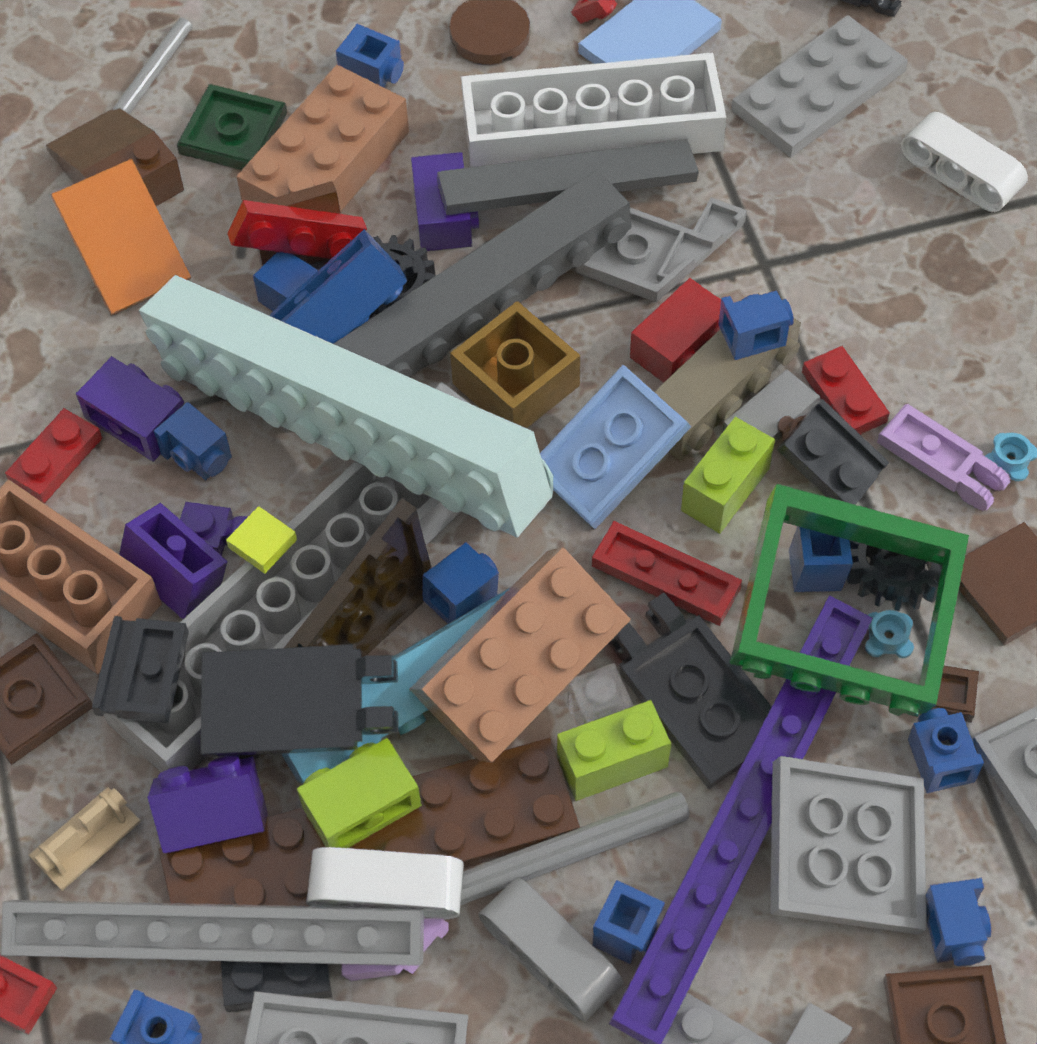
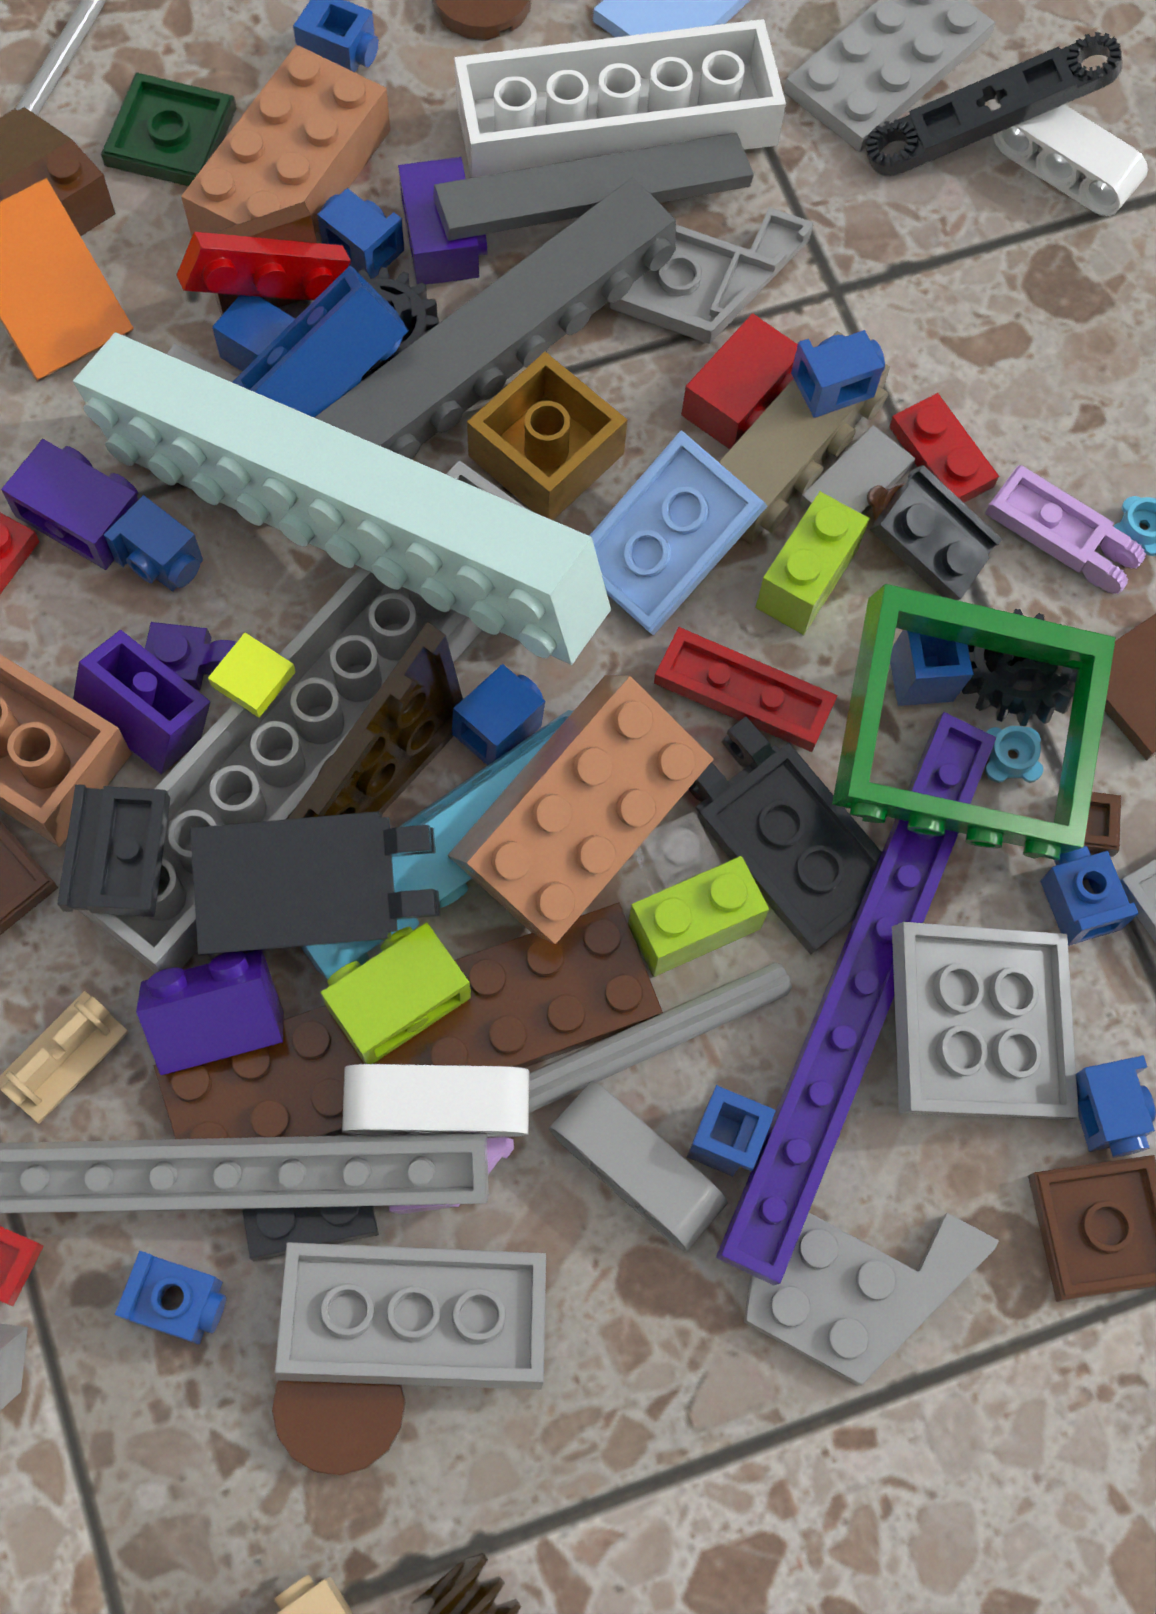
camera: 10 degrees left, 10 degrees up
(379, 207) = (363, 231): none -> blue brick
(921, 113) = (1020, 90): none -> black piece

